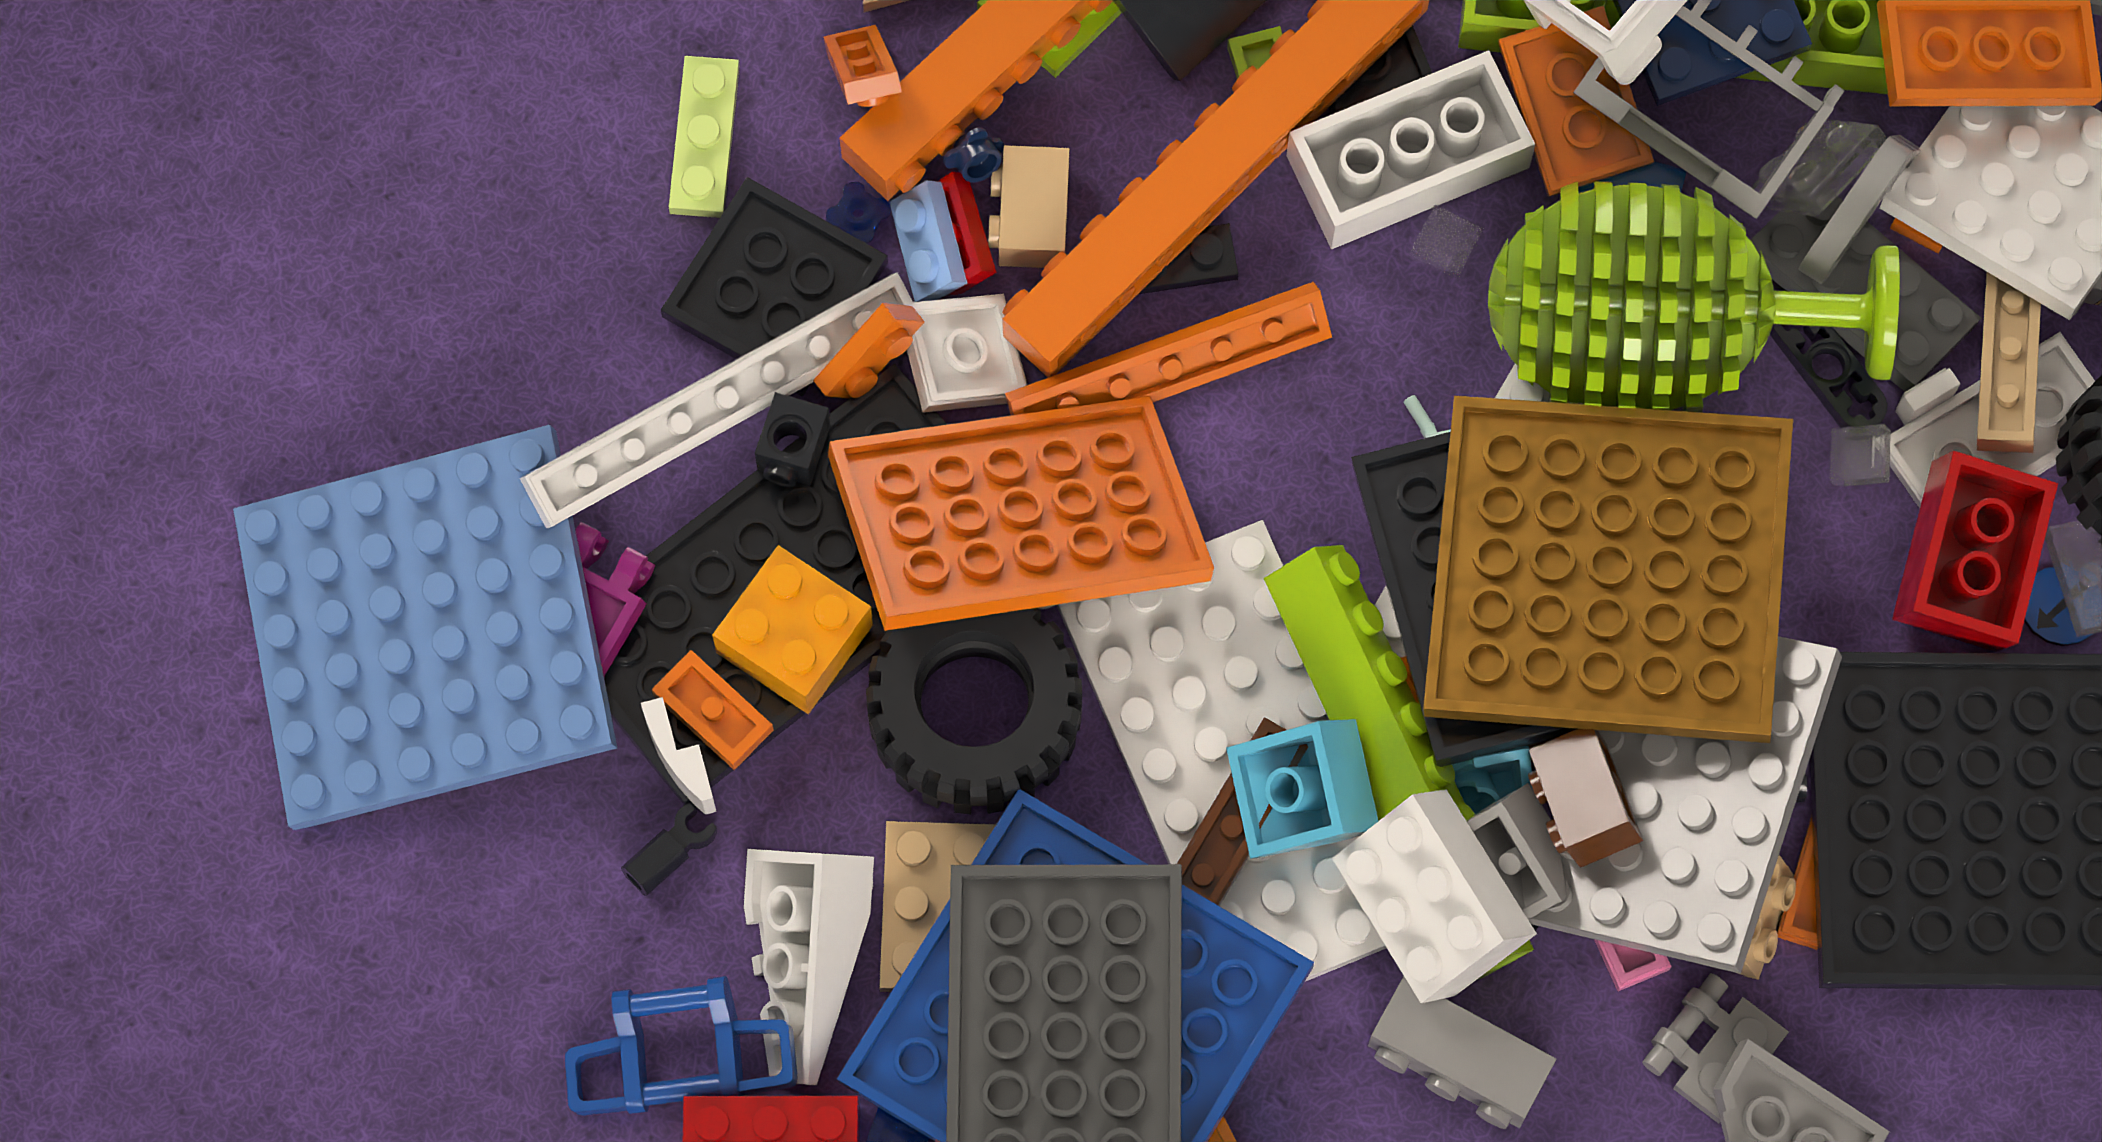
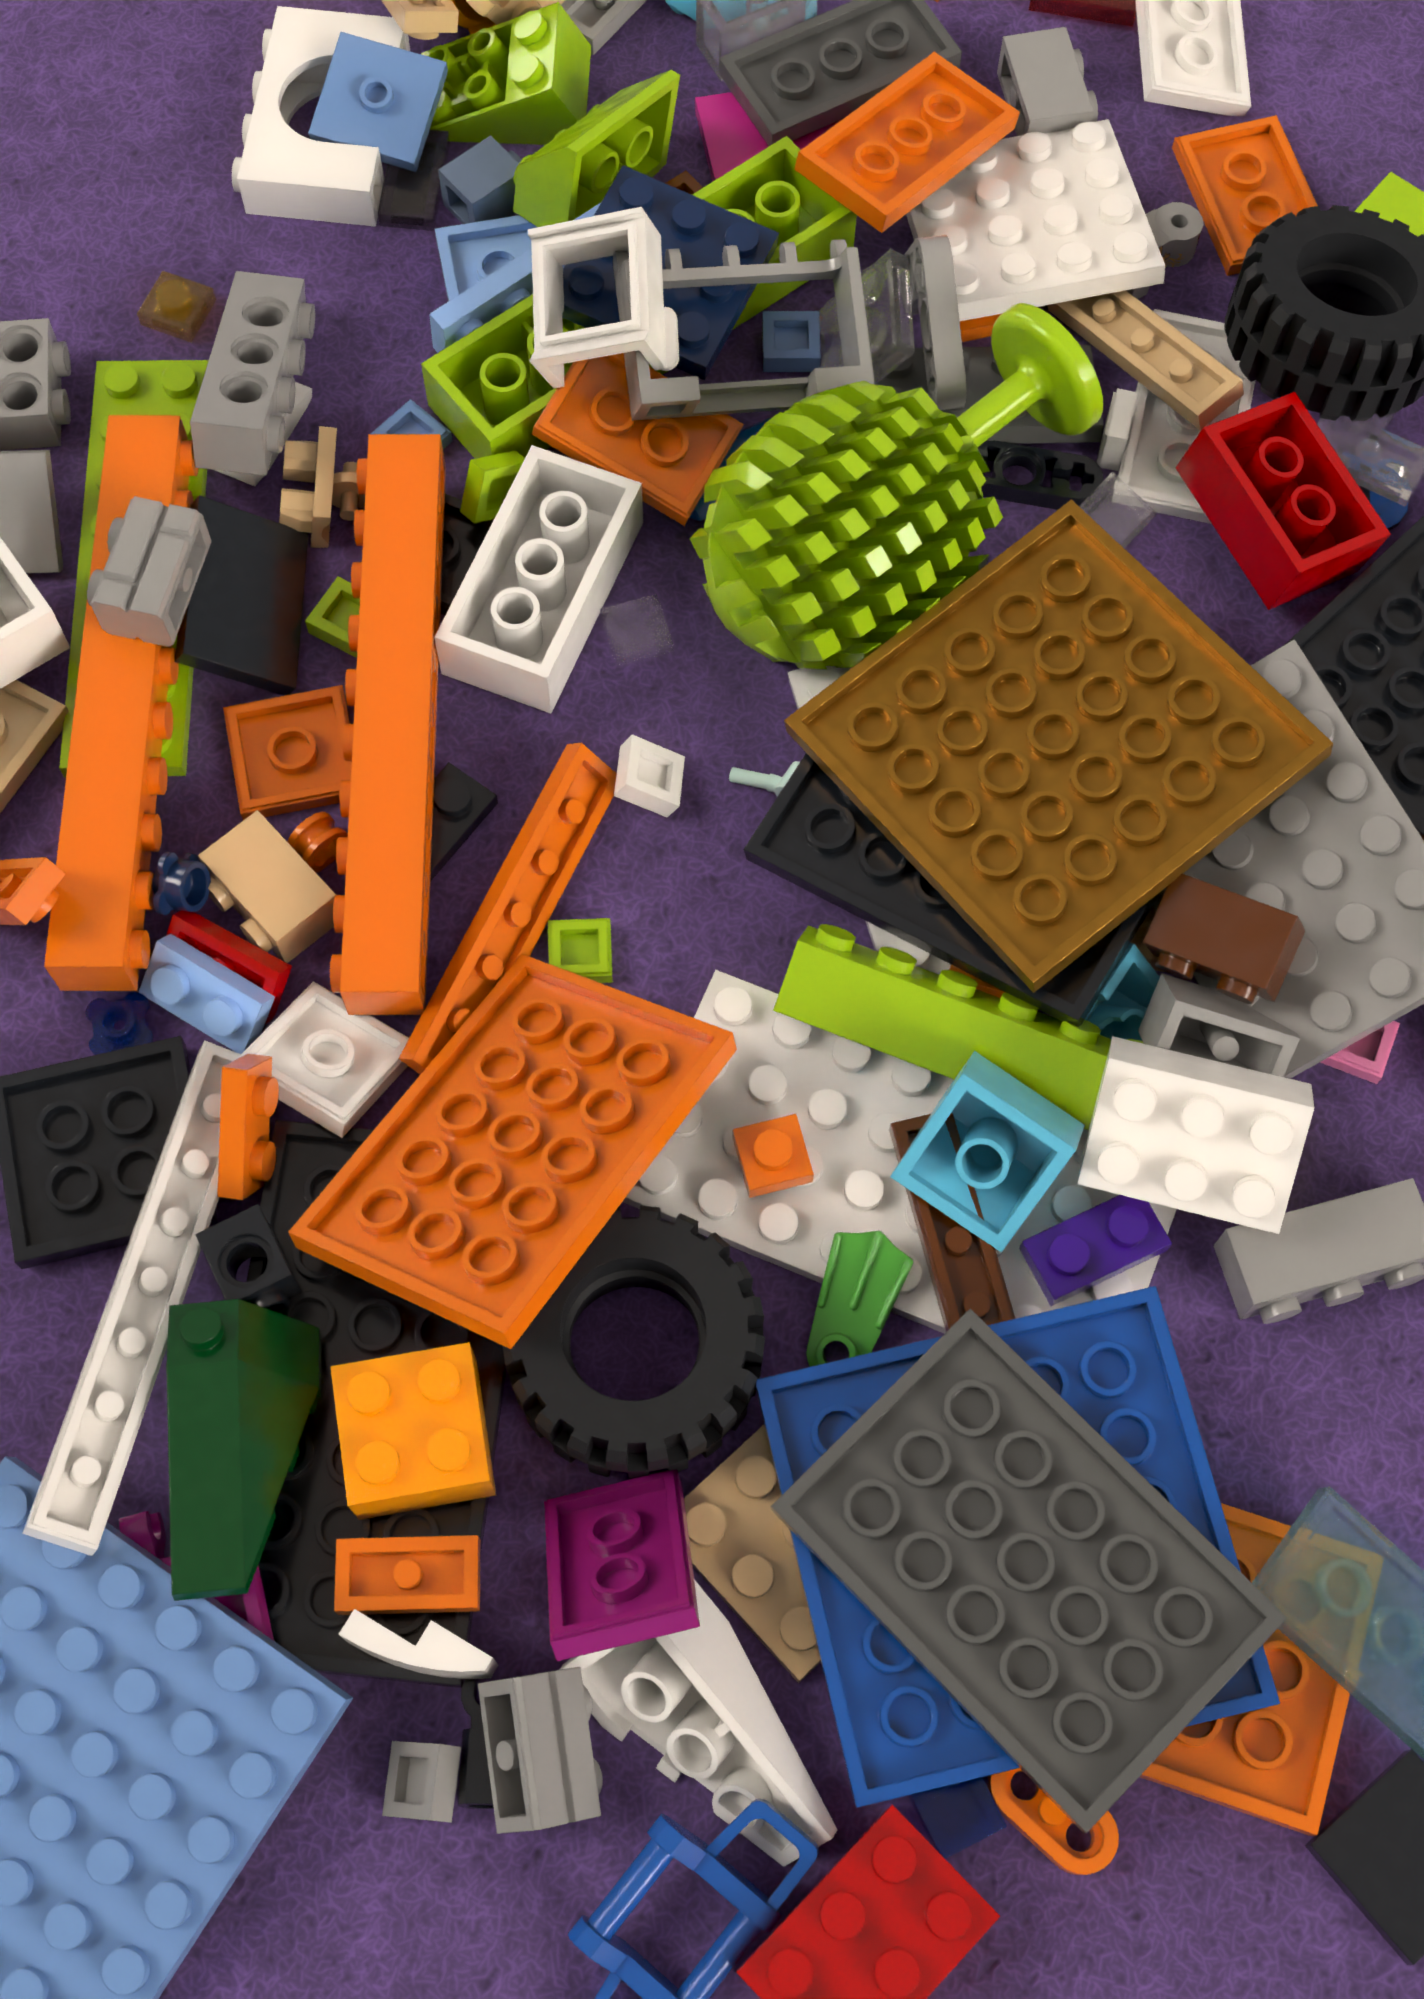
camera: 45 degrees left, 5 degrees down
(613, 834) = (421, 1781): none -> light grey plate
(694, 878) = (540, 1750): none -> light grey brick
(701, 521) = (235, 1421): none -> dark green wedge
(836, 816) = (619, 1565): none -> magenta tile
(1090, 200) = (317, 840): none -> orange bush
(1133, 119) = (288, 751): none -> orange tile
(1141, 801) = (857, 1293): none -> bright green piece
(1172, 668) = (772, 1155): none -> orange plate
(1192, 427) = (582, 947): none -> lime tile
(1311, 910) = (1094, 1247): none -> dark purple plate
(1348, 352) = (649, 776): none -> white plate
(1440, 49) = (488, 484): none -> lime plate
(1766, 124) = (790, 341): none -> medium blue plate

